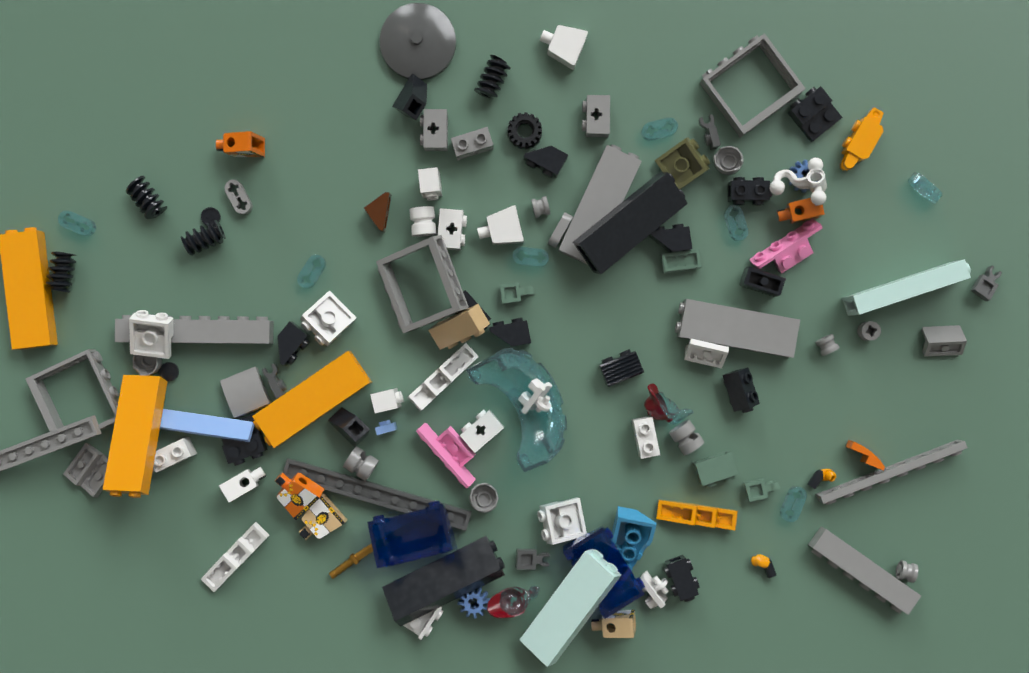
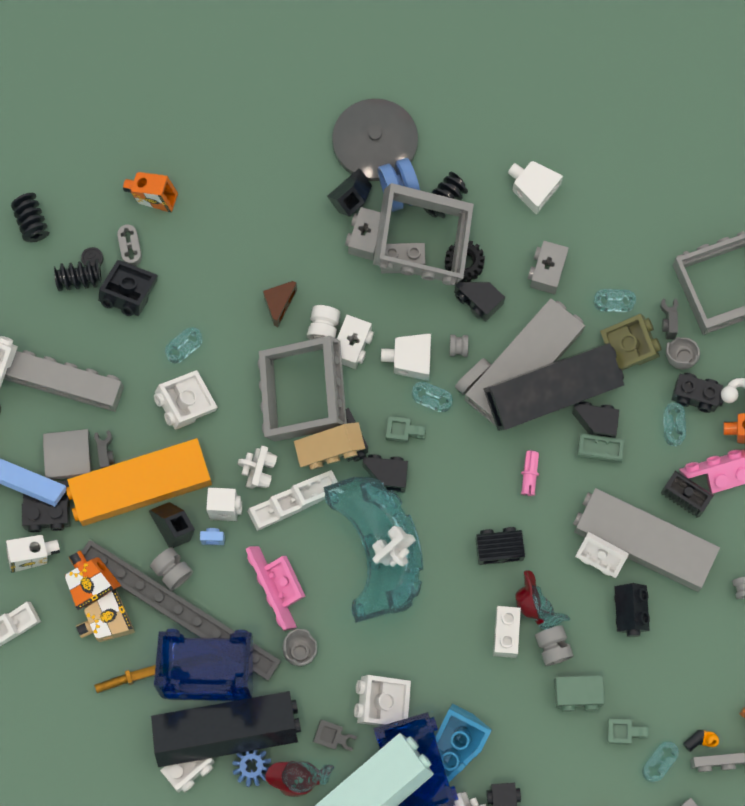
camera: 15 degrees right, 15 degrees down
(248, 236) = (127, 288): none -> black plate
(290, 341) = (136, 412): black slope -> none
(401, 360) = (260, 459): none -> white hips
(430, 183) = (344, 285): white brick -> none
(453, 77) = (403, 176): none -> medium blue wheel
(460, 91) = (433, 202): none -> light grey window
(476, 441) = (332, 572): white brick -> none
(628, 299) = (530, 473): none -> bright pink axle
(697, 514) = (543, 741): light orange slope -> none

